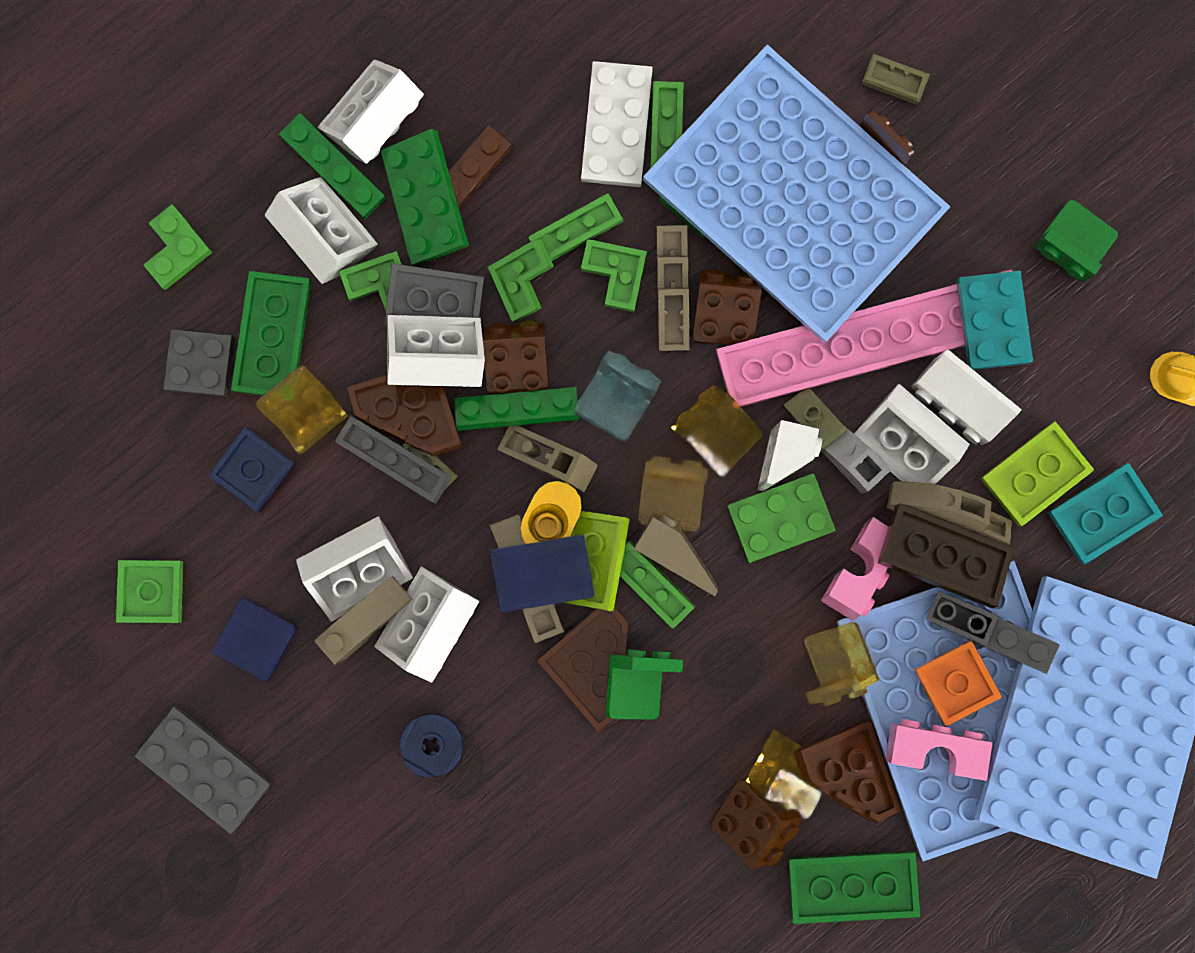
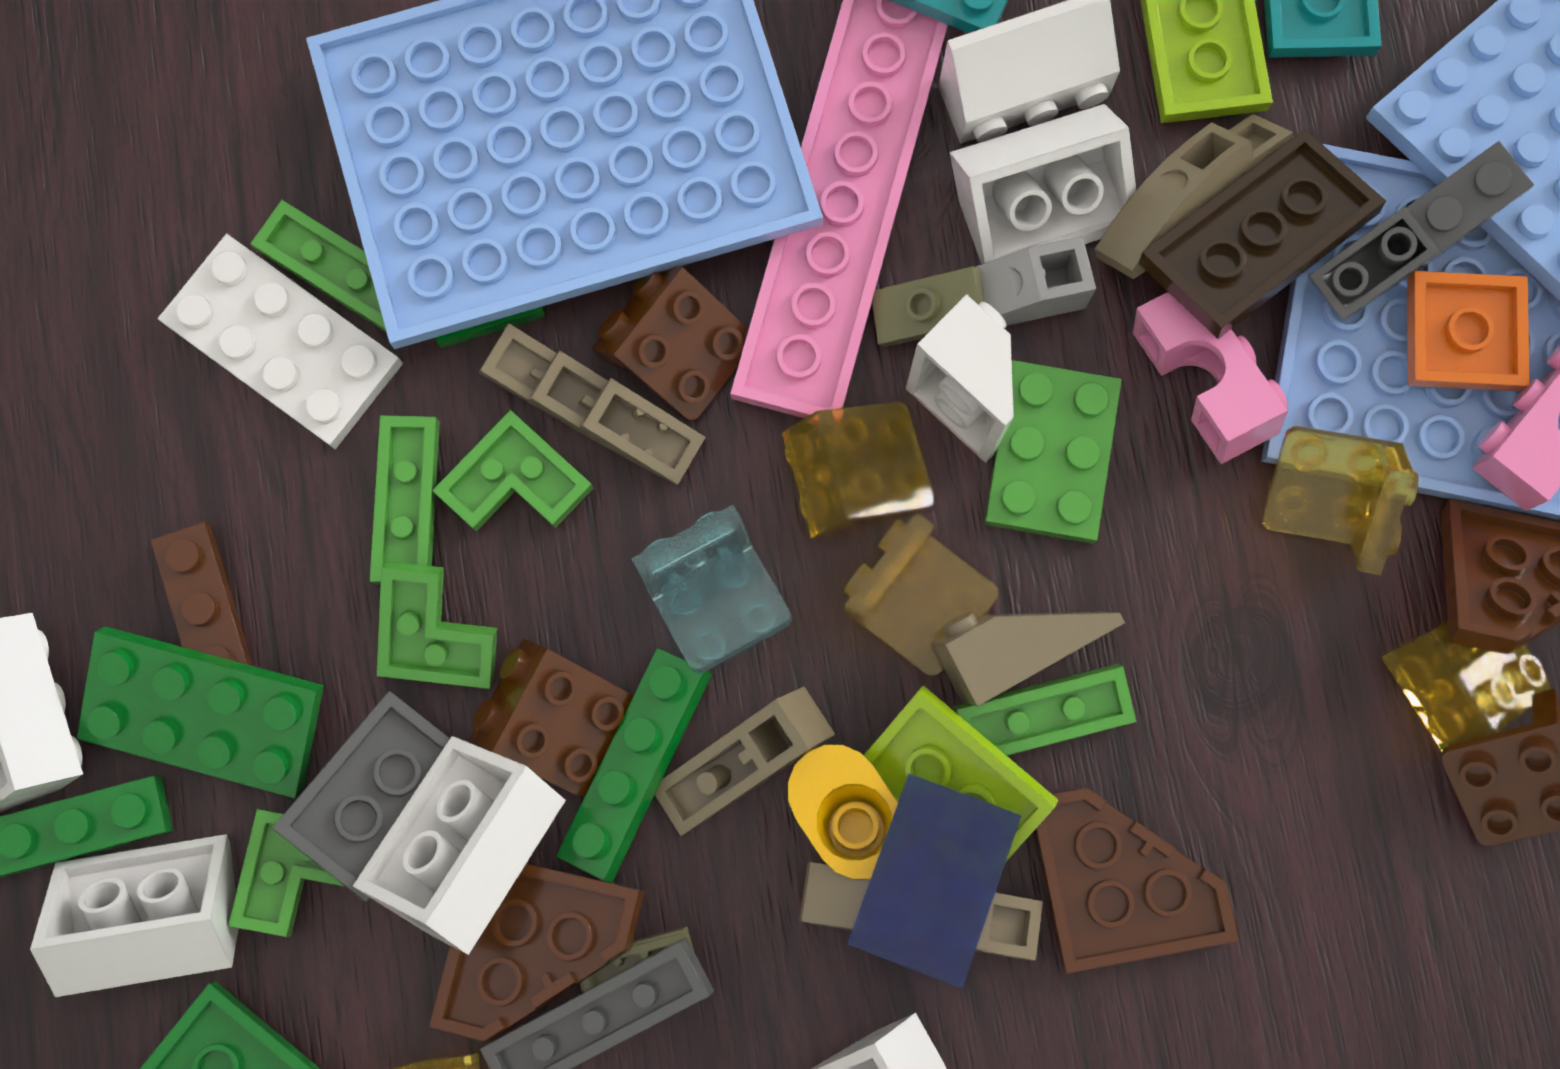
camera: 65 degrees left, 5 degrees down
(636, 683) = (1195, 831): green bracket -> none

